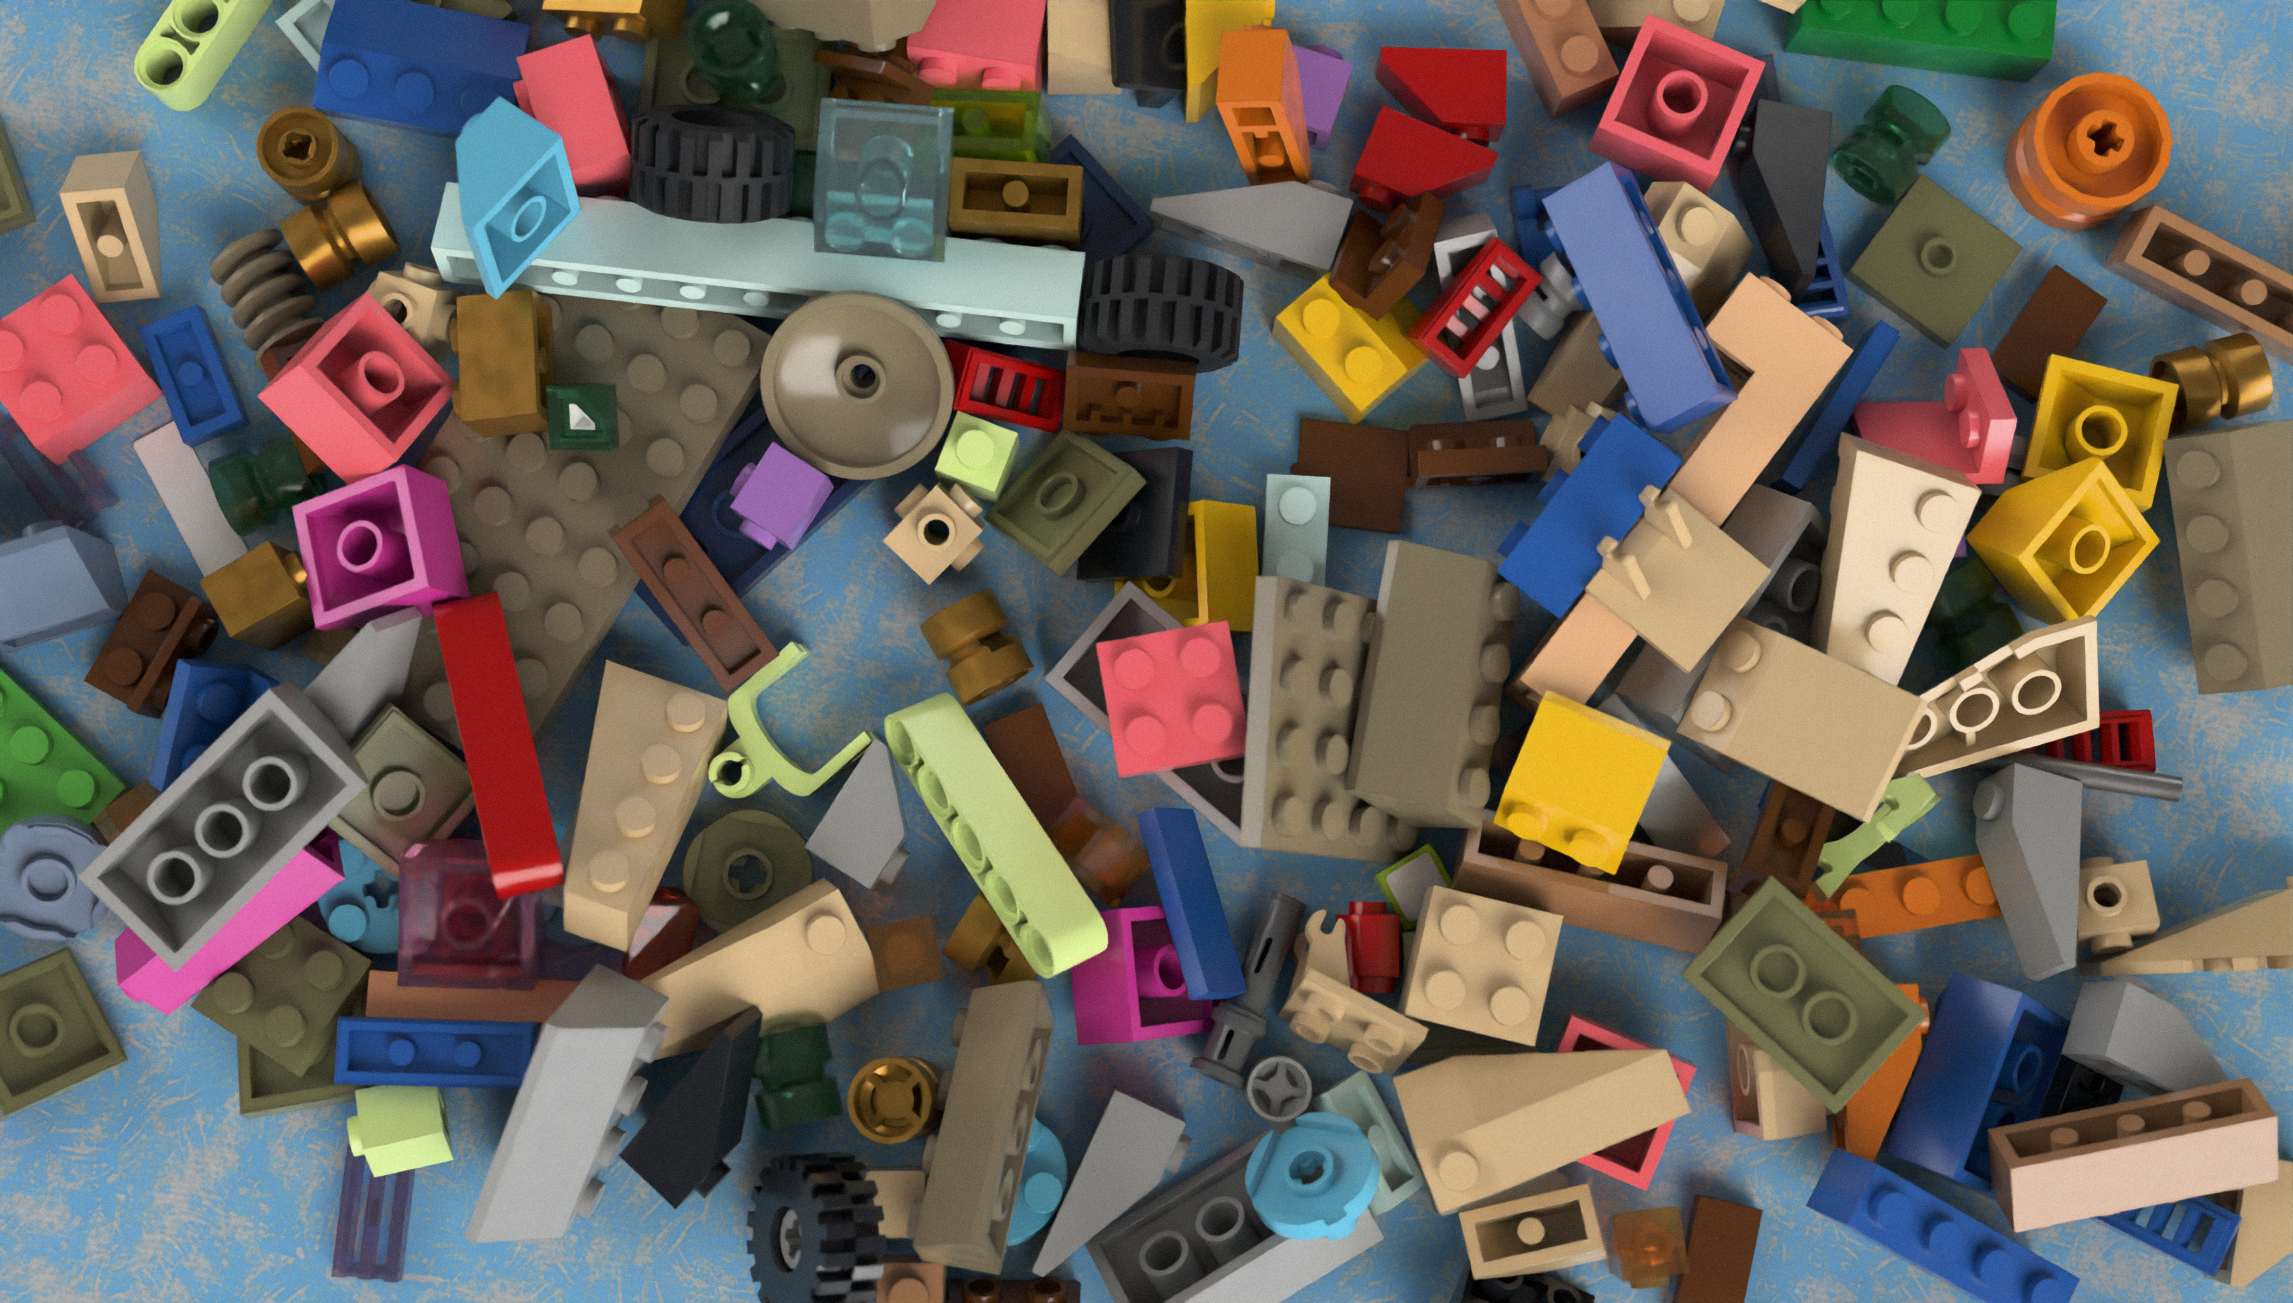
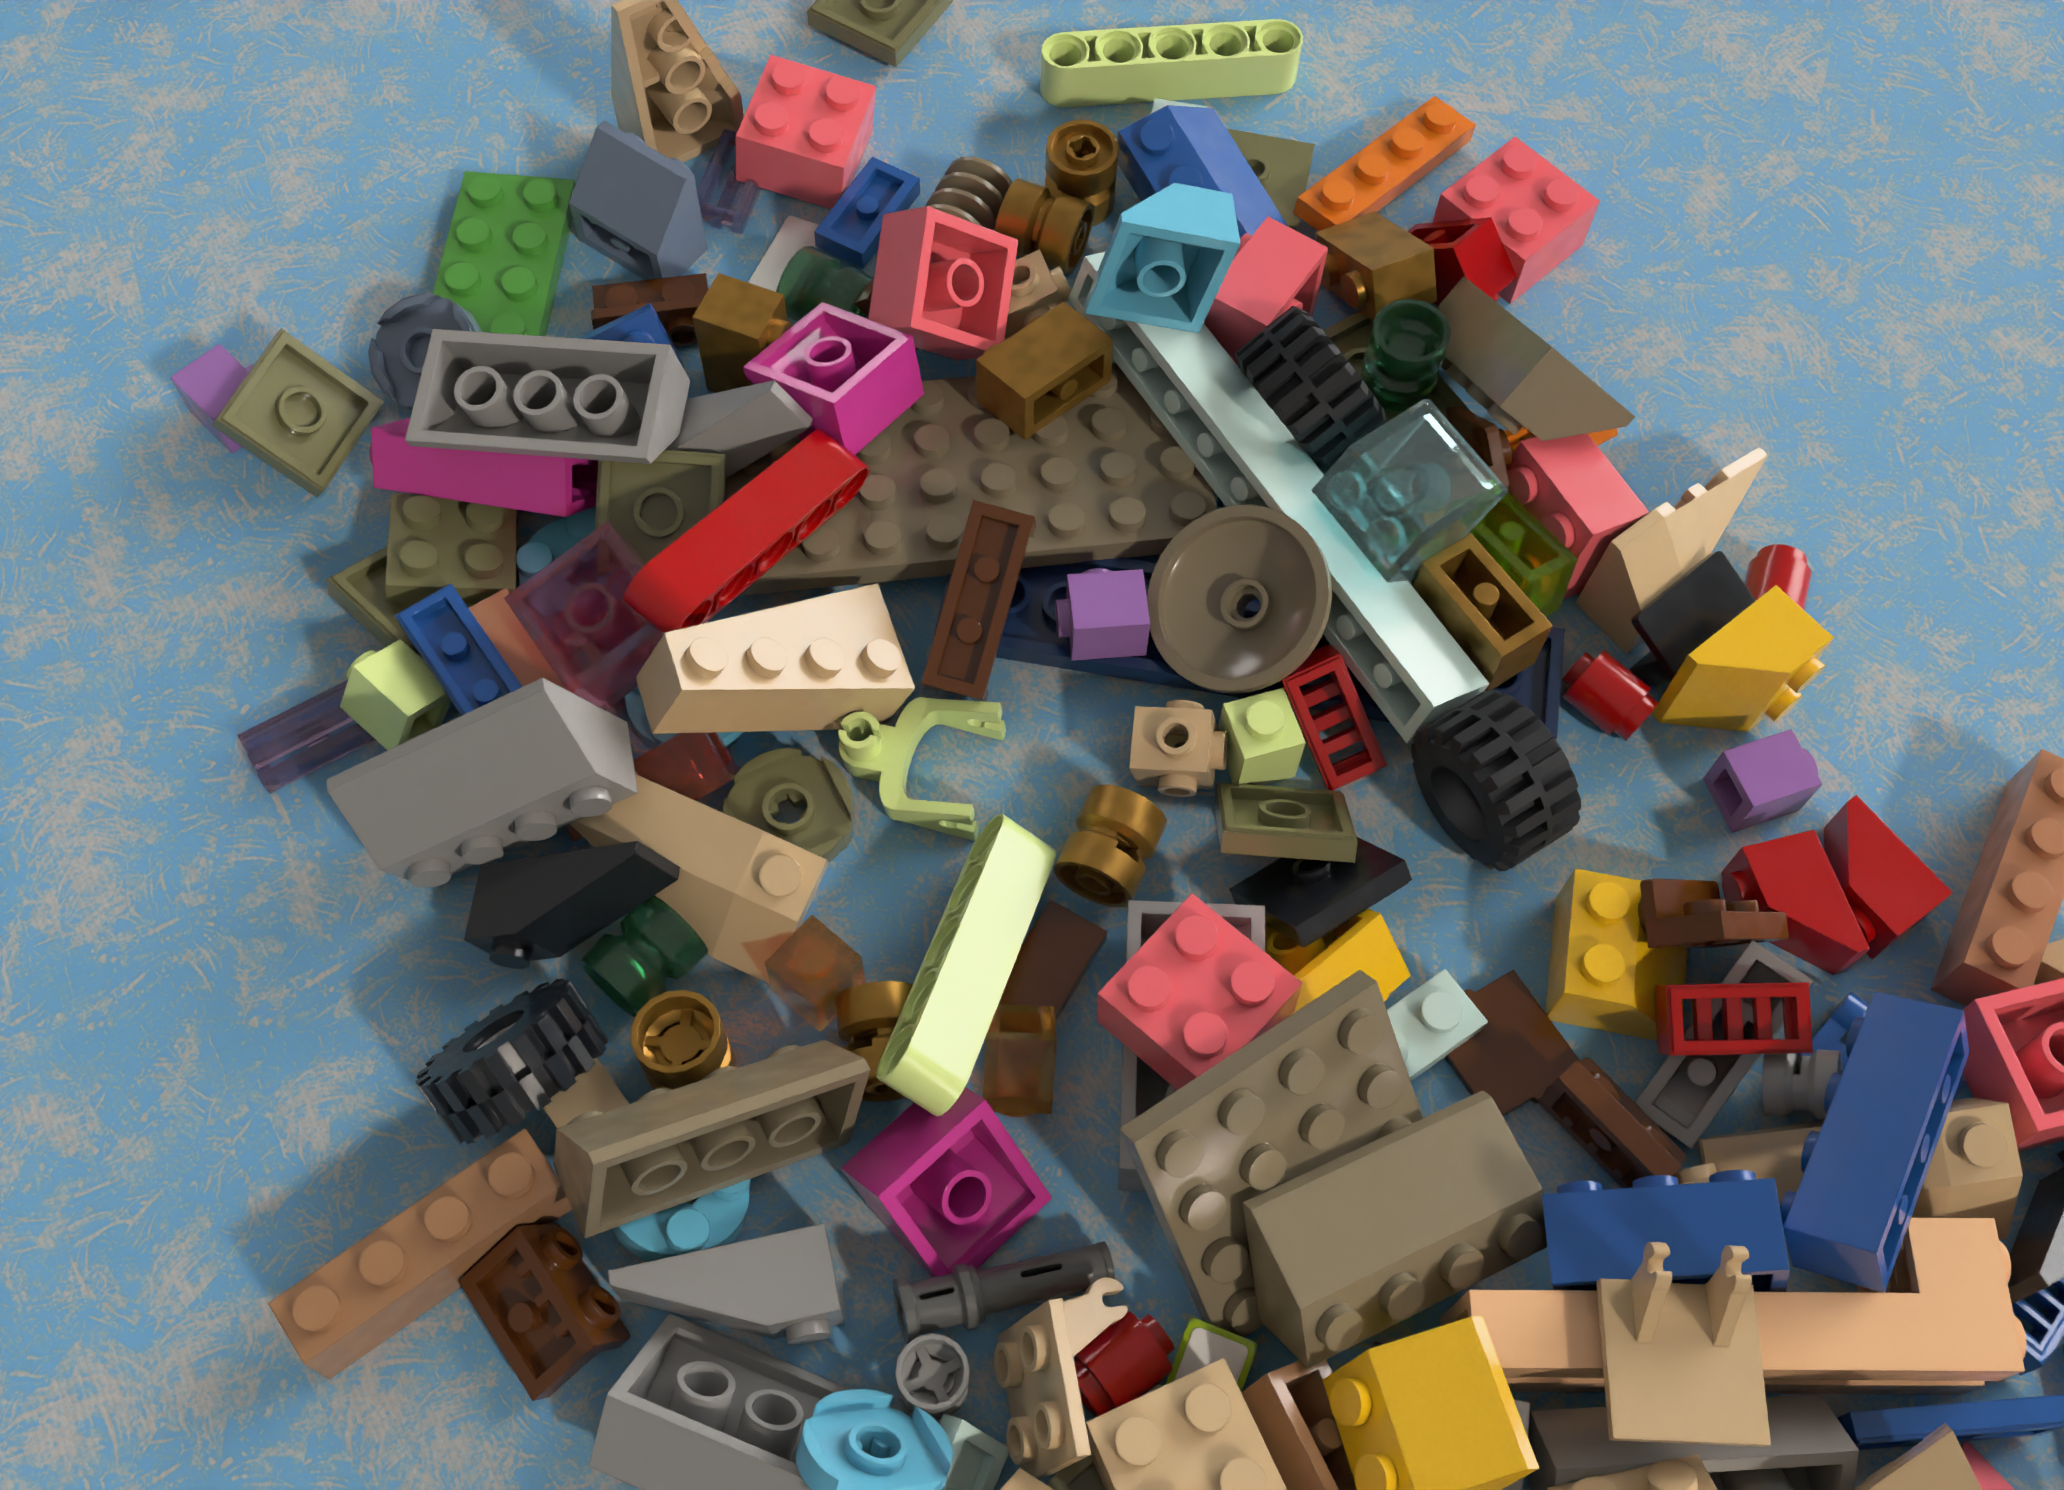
camera: 55 degrees right, 20 degrees down
(115, 225) = (932, 102): tan slope -> none
(582, 416) = (1049, 440): clear green tile -> none
(866, 823) = (901, 865): light grey slope -> none
(1129, 396) = (1409, 808): reddish brown bracket -> none
(1150, 148) = (1608, 694): none -> red brick
(1191, 904) = (1036, 1172): blue tile -> none
(1264, 105) = (1724, 729): orange slope -> none
(1271, 224) = (1632, 815): light grey slope -> none

